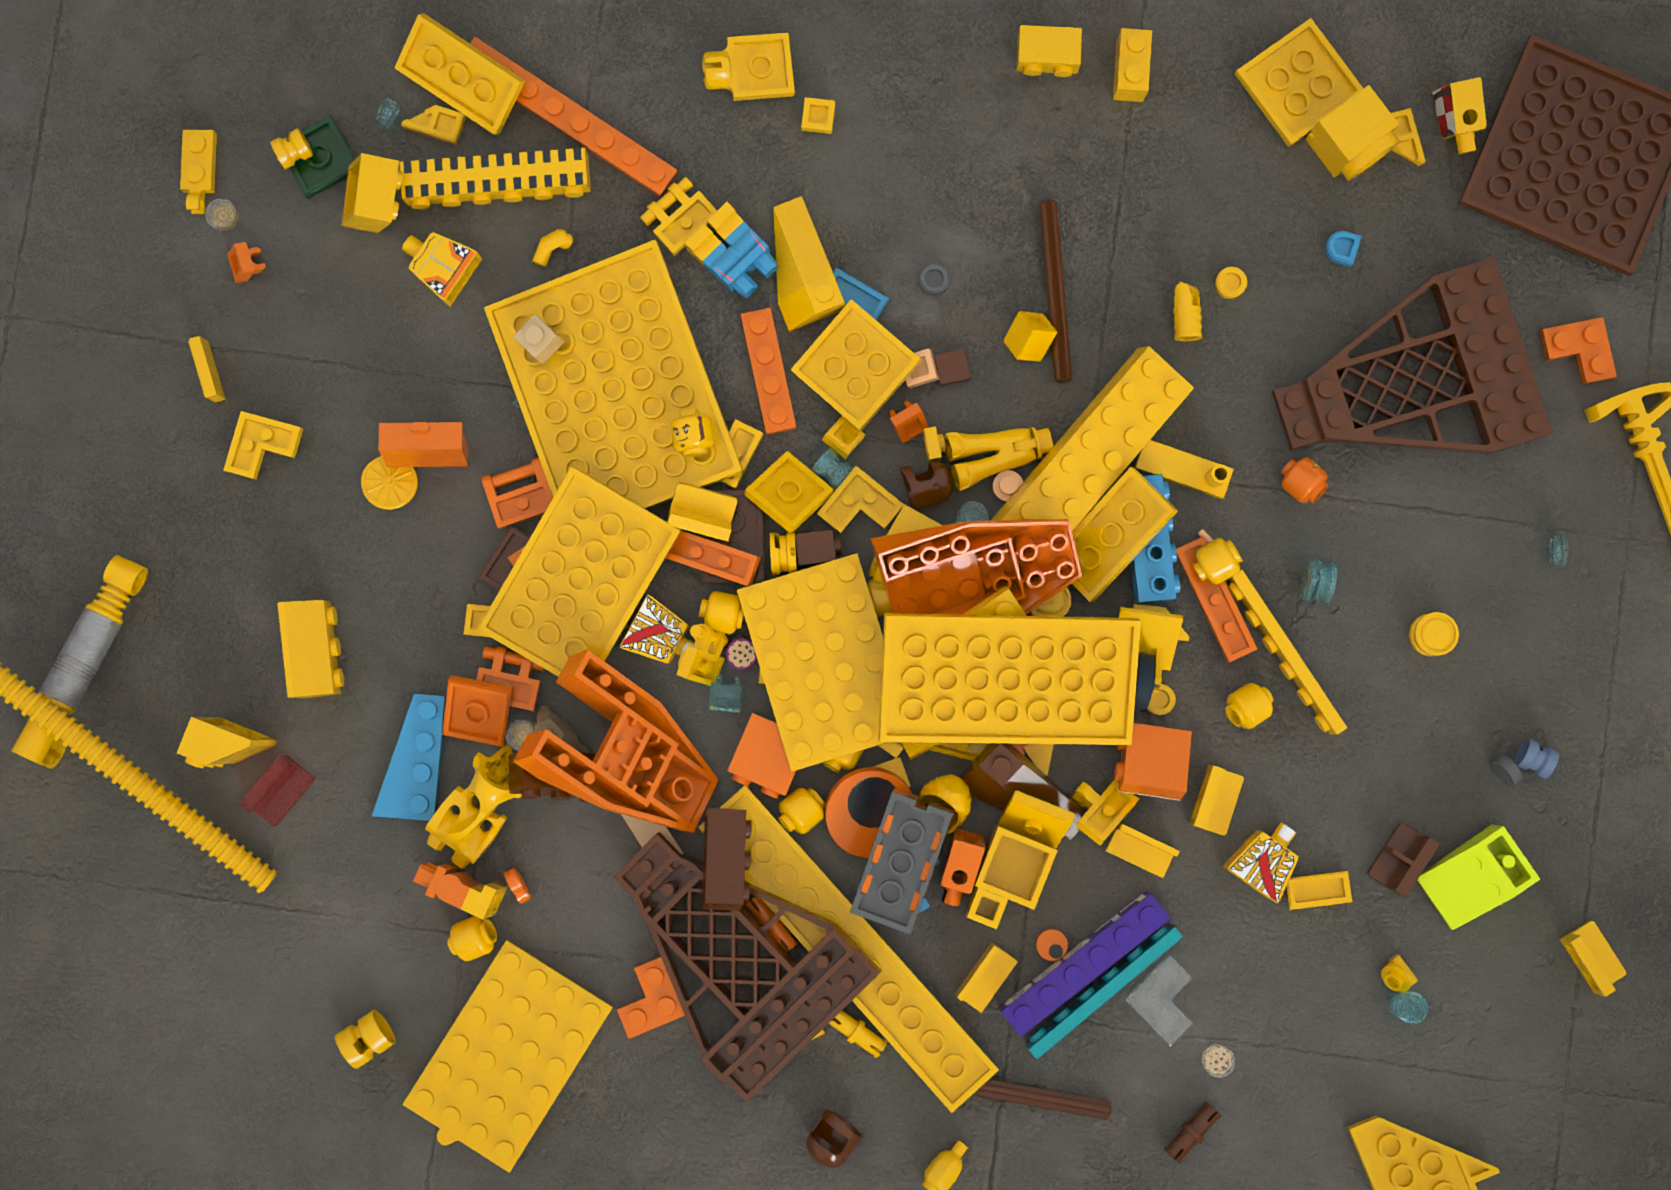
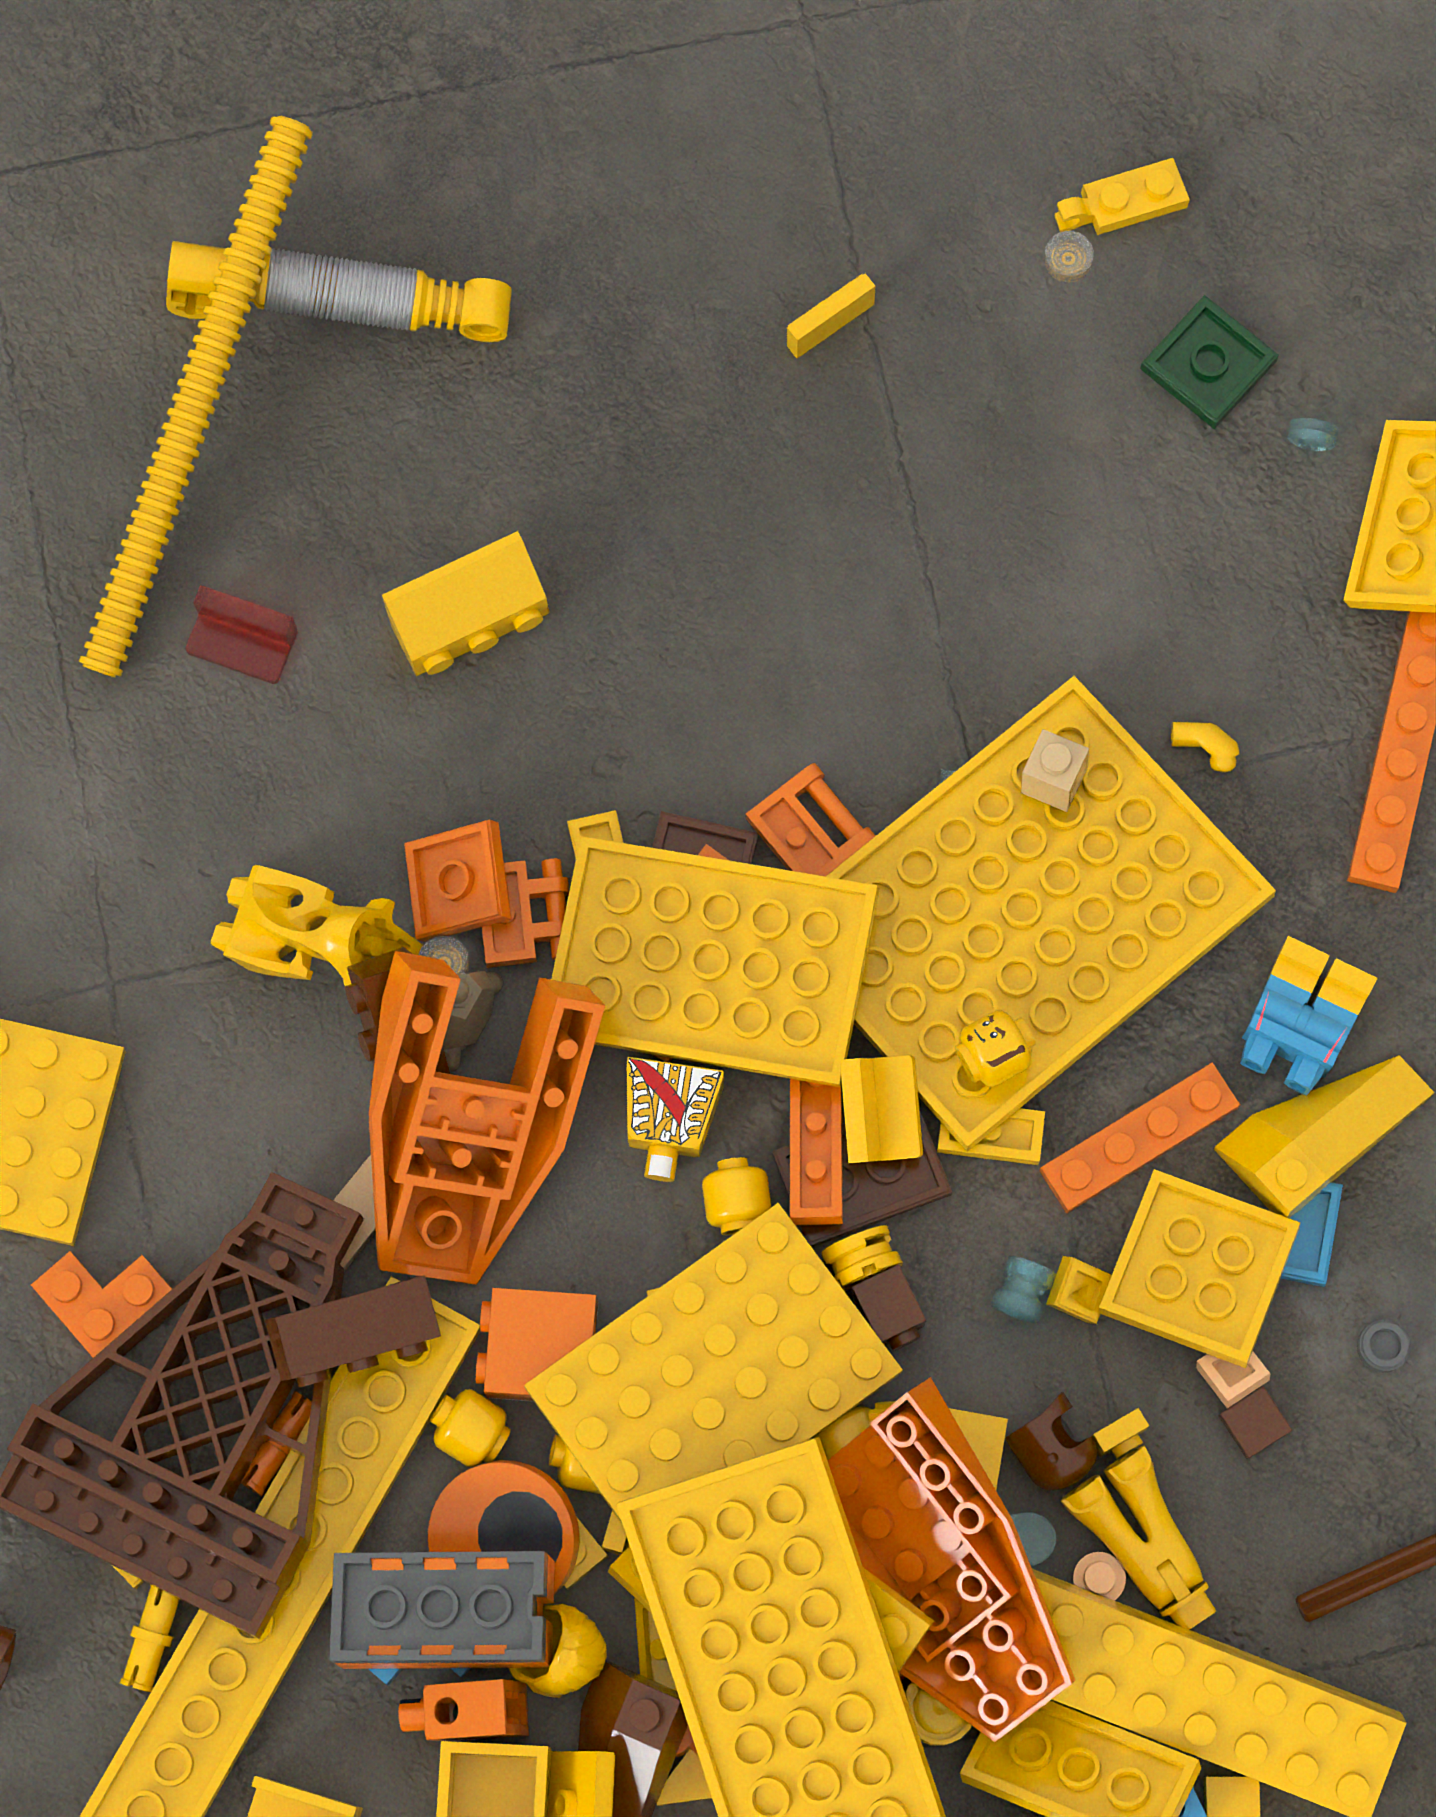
camera: 70 degrees right, 10 degrees down
(220, 742) = (283, 525): yellow slope -> none
(241, 262) = (1007, 308): orange tile -> none
(254, 437) = (757, 418): yellow plate -> none
(291, 148) = (1204, 317): yellow wheel -> none
(371, 193) = (1181, 451): yellow piece -> none
(388, 486) = (759, 633): yellow wheel -> none
(415, 767) = (340, 822): dark azure wing -> none
(423, 444) = (831, 659): orange container -> none
(437, 123) = (1327, 513): yellow tile -> none
(441, 264) = (1114, 592): yellow torso -> none
(460, 889) = (178, 951): orange hips -> none
(472, 938) = (111, 995): yellow head -> none
(495, 177) = (1279, 625): yellow brick -> none
(517, 885) = (213, 1034): orange tile -> none
(684, 221) = (1323, 926): yellow plate -> none
(703, 660) = (652, 1192): yellow plate -> none
(725, 696) = (608, 1248): clear light blue tile -> none
(741, 654) = (681, 1248): tan tile -> none
(788, 492) = (961, 1233): yellow plate -> none
(856, 494) = (996, 1339): yellow plate -> none
(908, 422) = (1141, 1383): orange tile -> none
(986, 907) = (411, 1774): yellow brick -> none
(1030, 336) = (1351, 1529): yellow panel -> none

